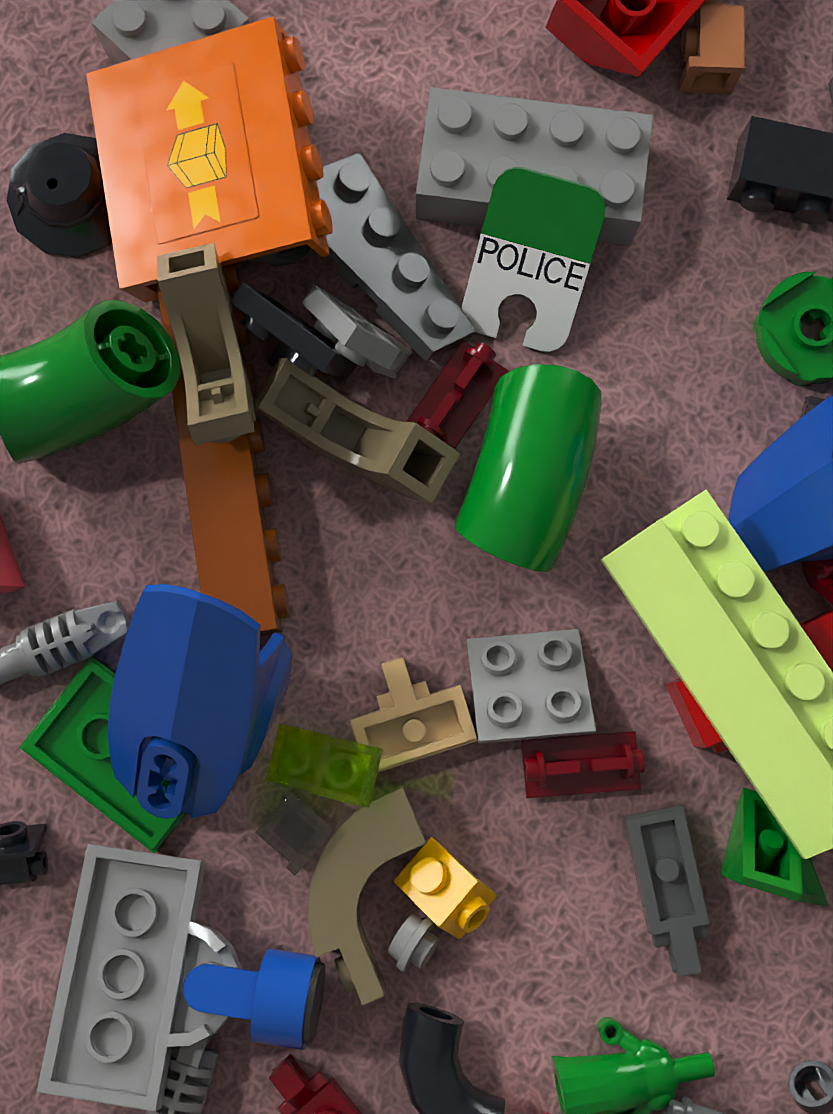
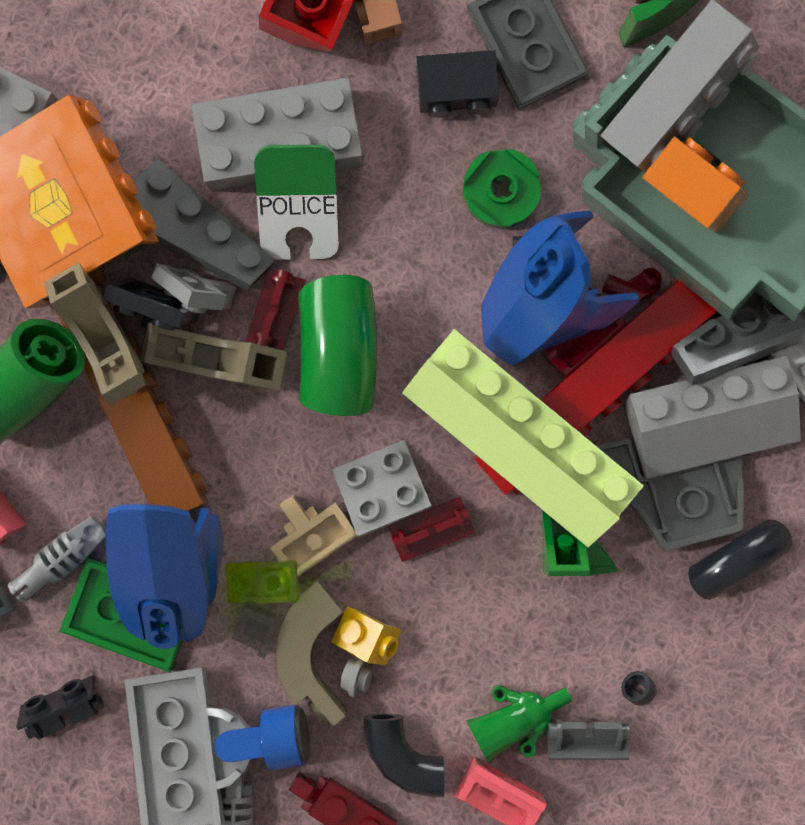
camera: 15 degrees left, 5 degrees up
(668, 884) = (509, 588): dark grey hinge -> none

